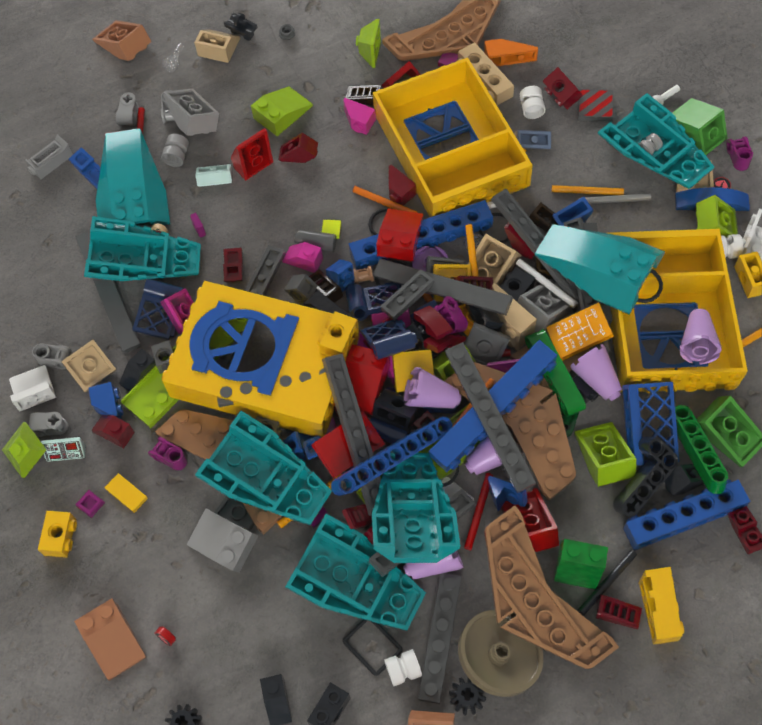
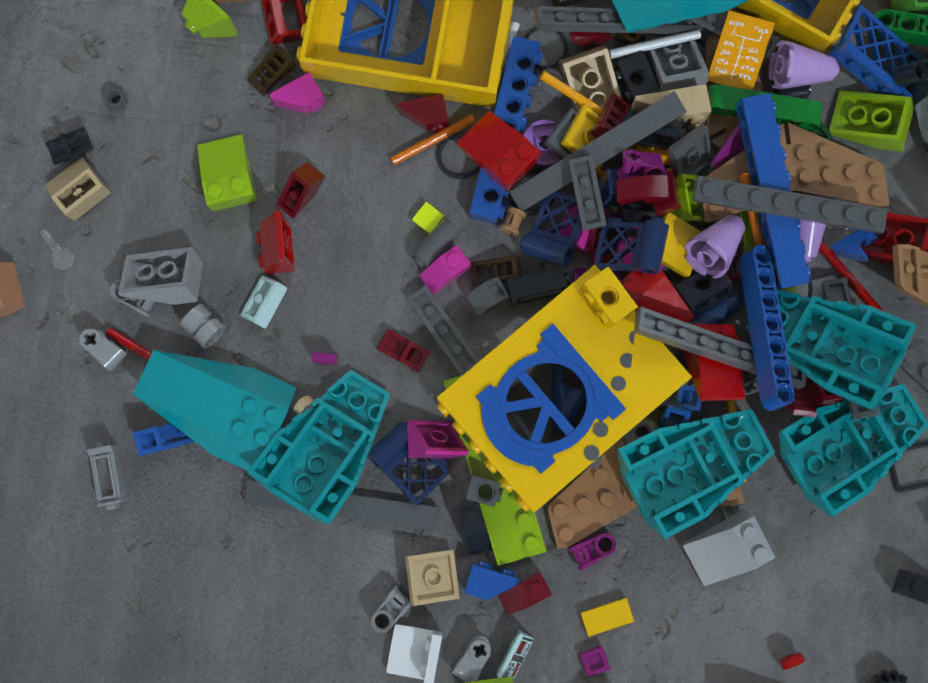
camera: 60 degrees left, 20 degrees up
(341, 273) = (500, 243): blue slope -> none

